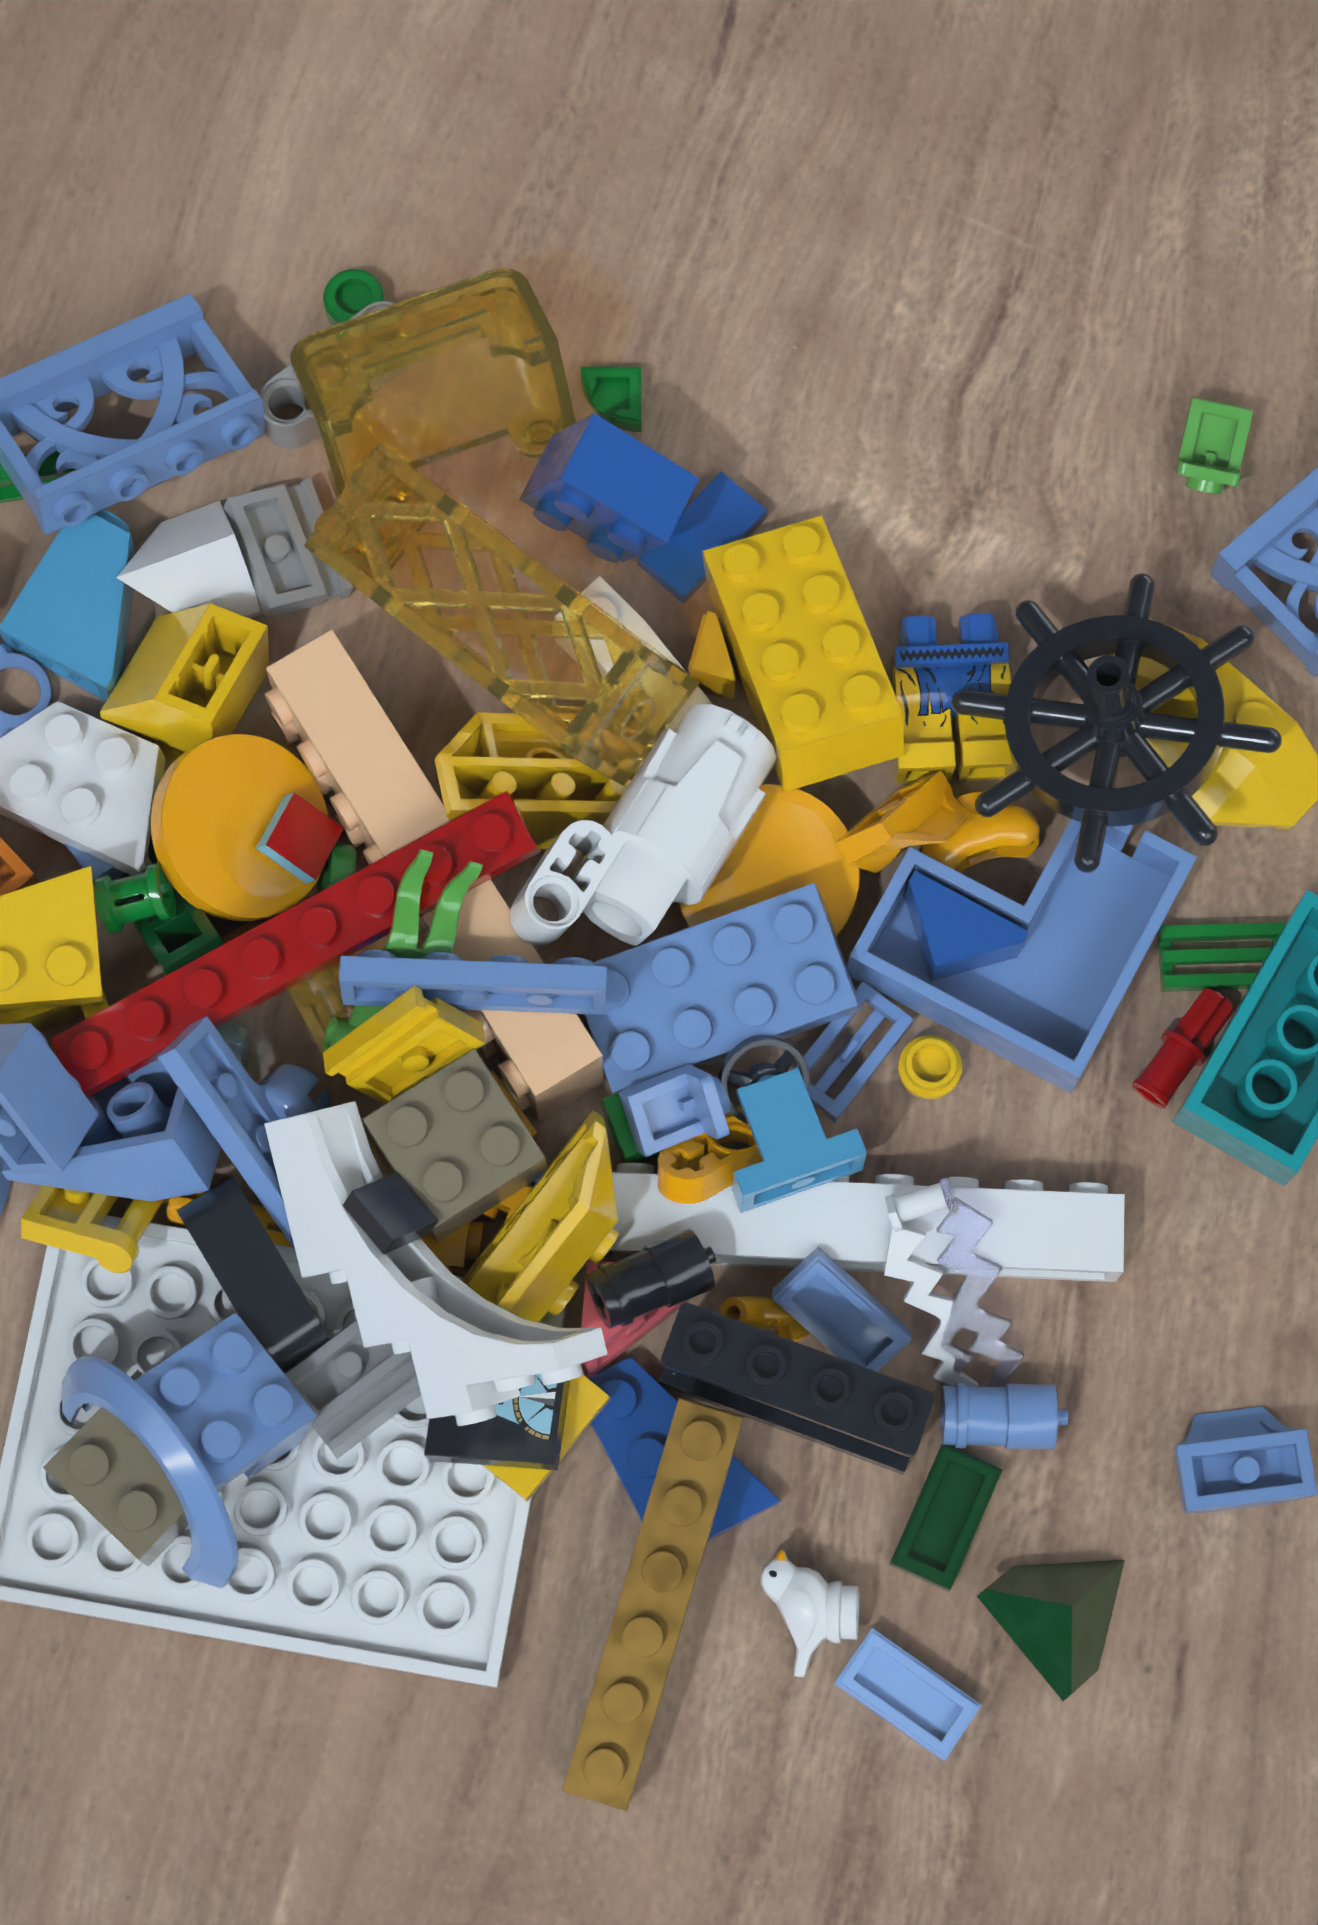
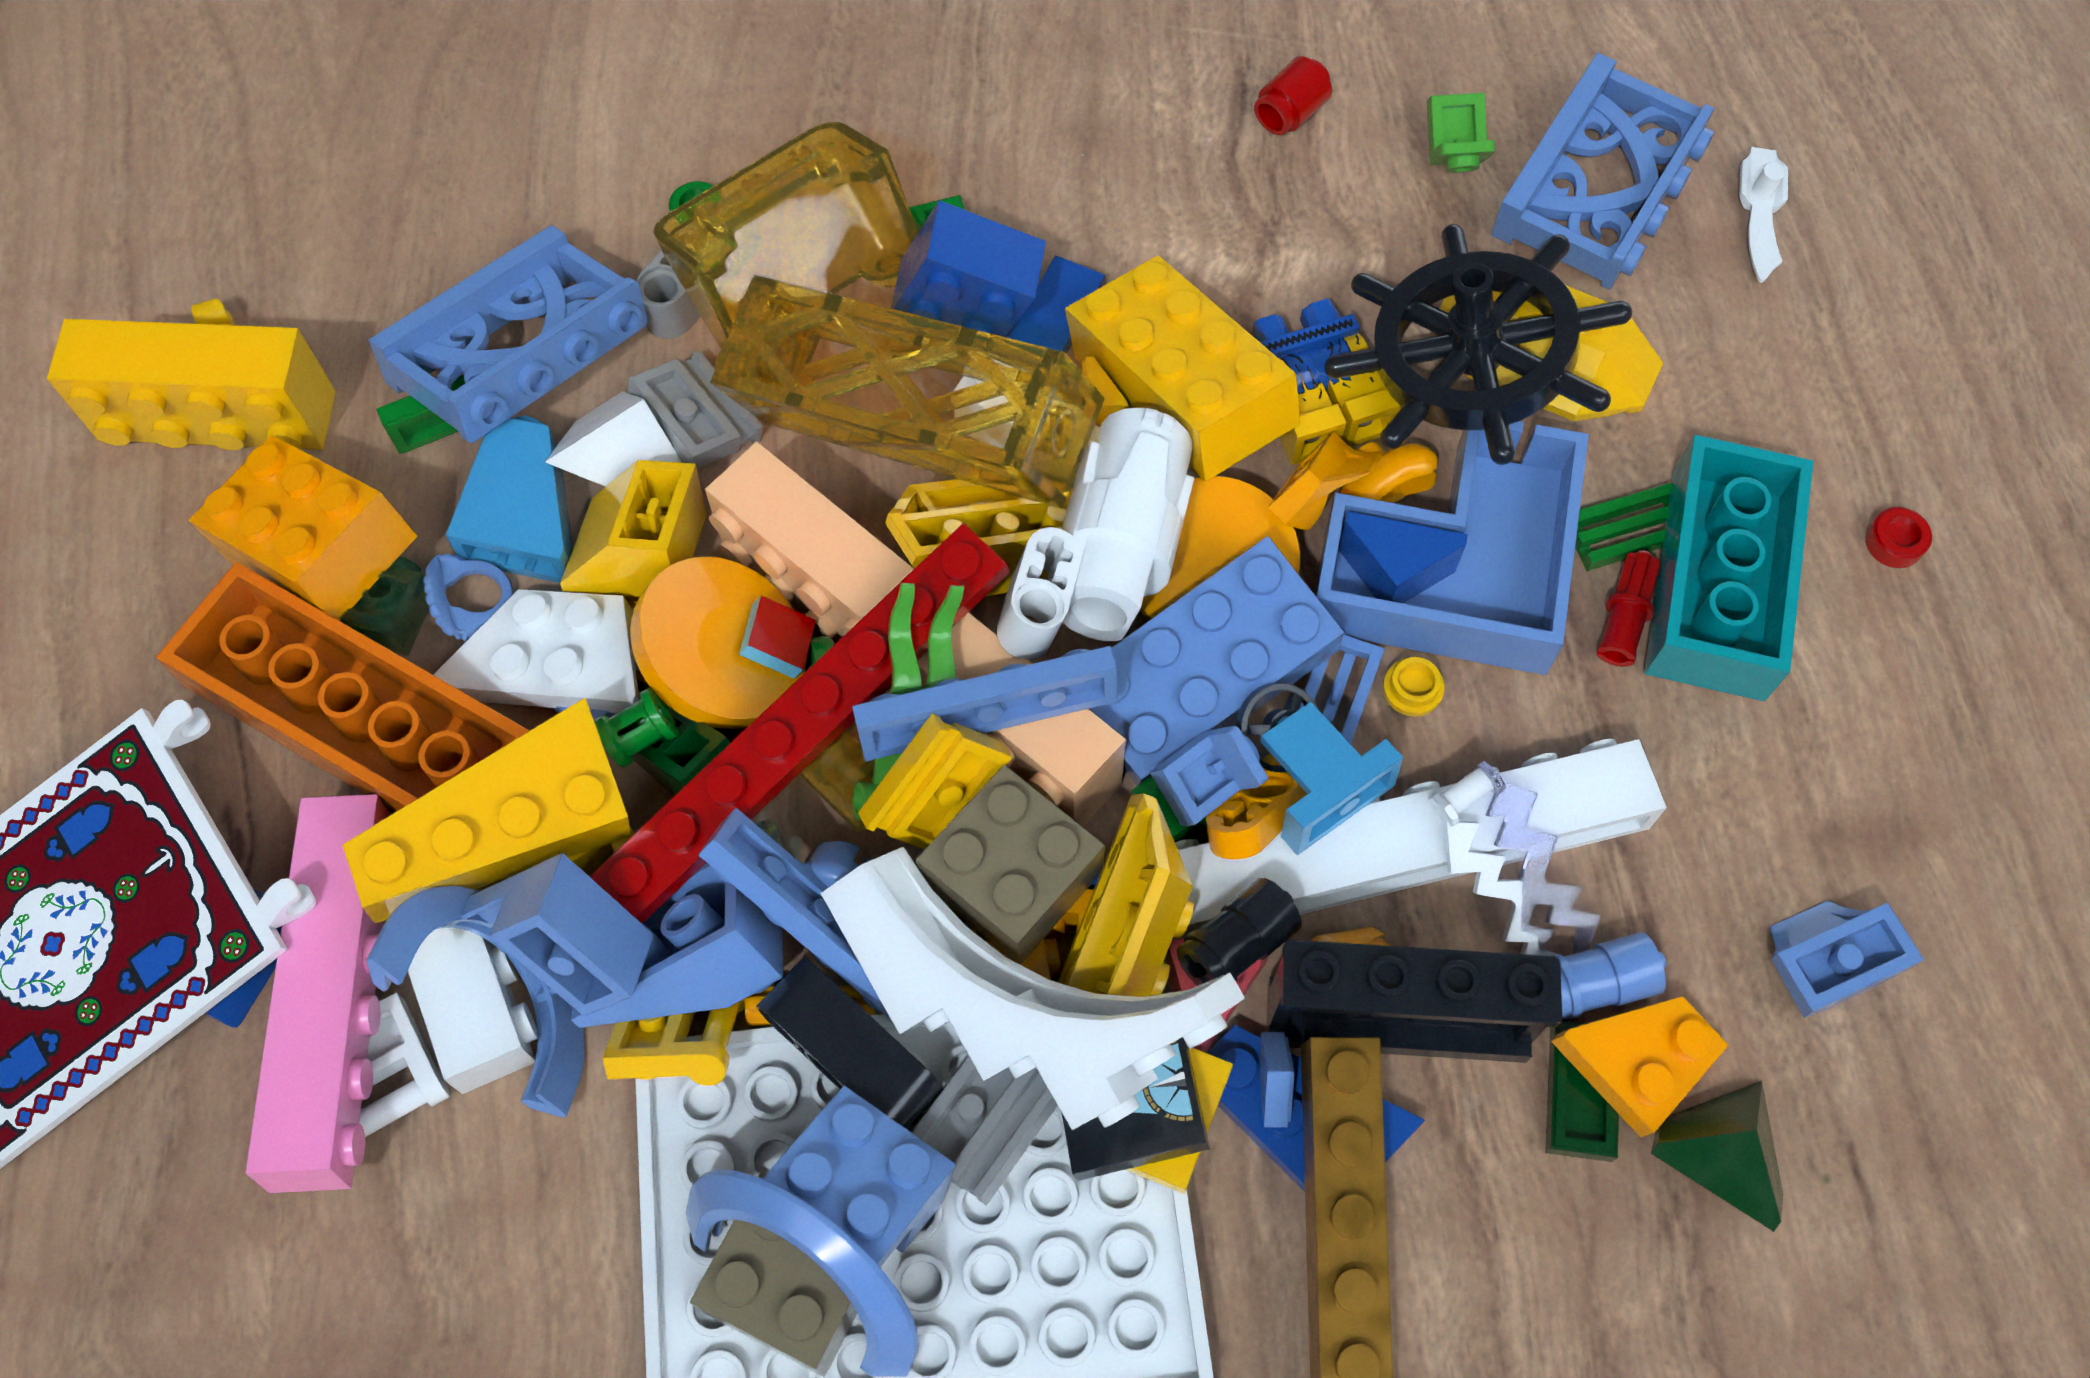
camera: 15 degrees left, 10 degrees down
(390, 1213) = (972, 937): black tile -> none
(645, 1422) = (1276, 1079): none -> medium blue tile
(810, 1607) = (1494, 1215): white animal -> none
(841, 1312) = (1414, 917): medium blue tile -> none
(907, 1694) = (1615, 1274): light blue tile -> none
(1011, 1506) = (1644, 1059): none -> light orange wing
(1046, 347) = (1293, 95): none -> red brick

